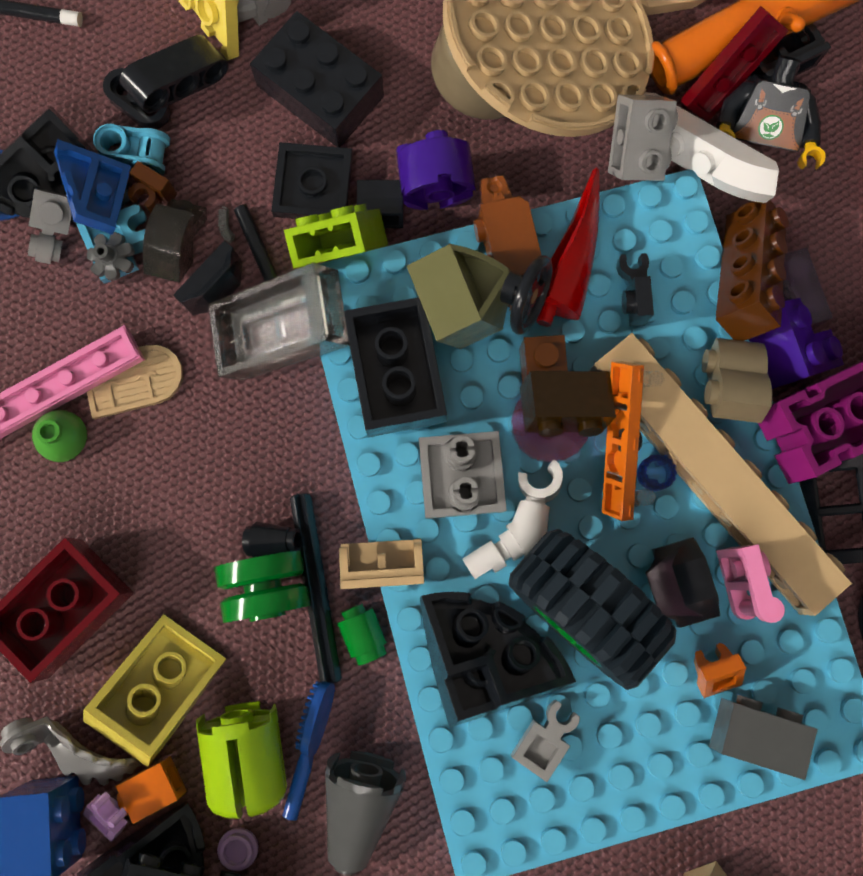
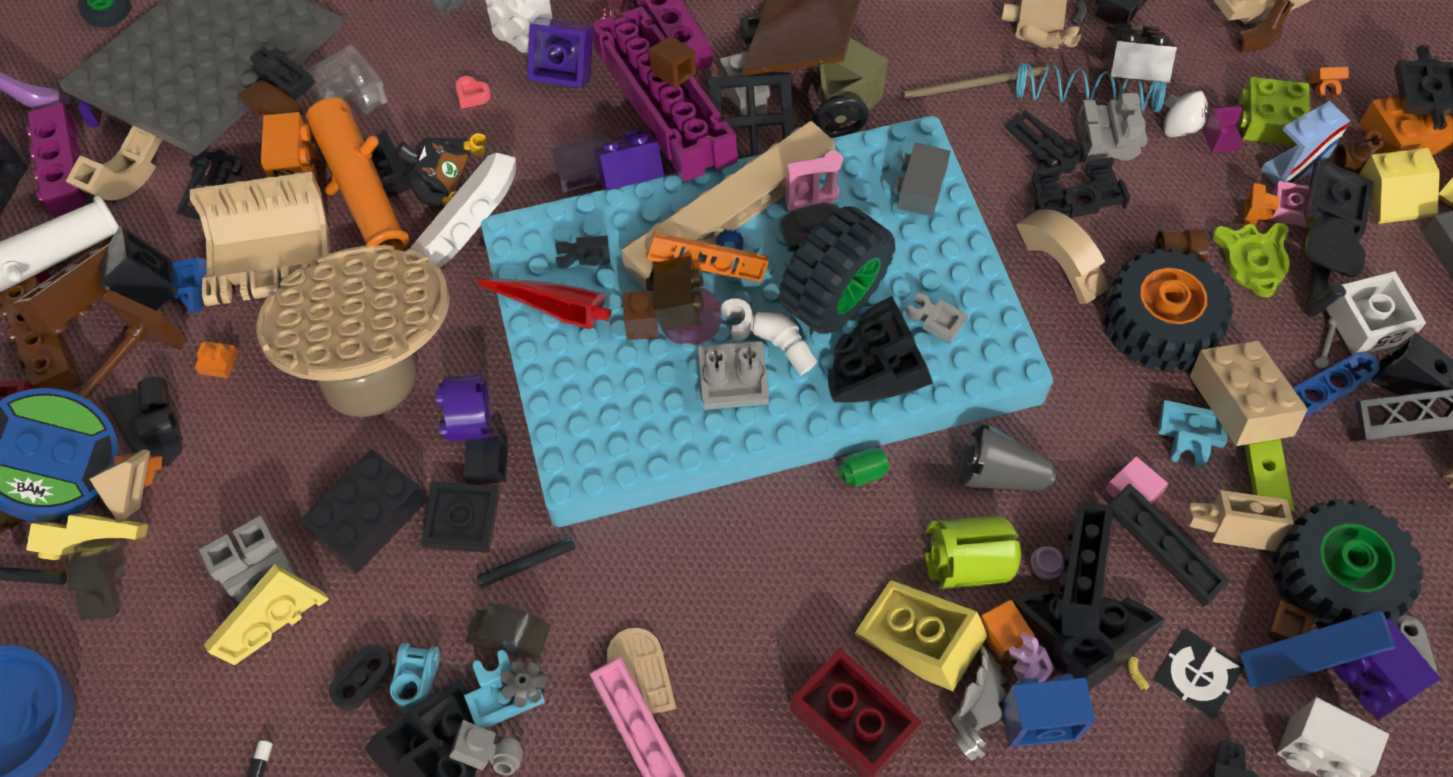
camera: 85 degrees left, 20 degrees down
(59, 435) = (692, 737): bright green brick -> none
(92, 185) = (455, 694): blue wing -> none
(150, 183) = (450, 655): reddish brown tile -> none
(173, 73) = (344, 634): black beam -> none
(212, 280) = (550, 596): black slope -> none
(223, 220) = (502, 593): light grey leg -> none
(262, 586) = (828, 536): green wheel -> none
(270, 539) = (787, 538): black cone -> none
(278, 323) = (598, 527): clear smoke piece -> none
(309, 741) = (950, 506): blue piece -> none
(314, 579) = (825, 508): black axle -> none
(335, 235) = (521, 478): lime brick -> none
(381, 564) = (807, 432): tan hinge -> none
(395, 367) = (644, 418): black brick -> none
(470, 294) = (585, 355): olive piece -> none
(506, 226) = (540, 340): dark orange hinge -> none
(642, 137) = (455, 247): light grey brick -> none
(721, 674) = (880, 204): orange tile -> none
(734, 64) = (395, 190): dark red plate -> none
(737, 380) = (659, 185): dark tan brick -> none
(752, 270) = (570, 178): reddish brown brick -> none

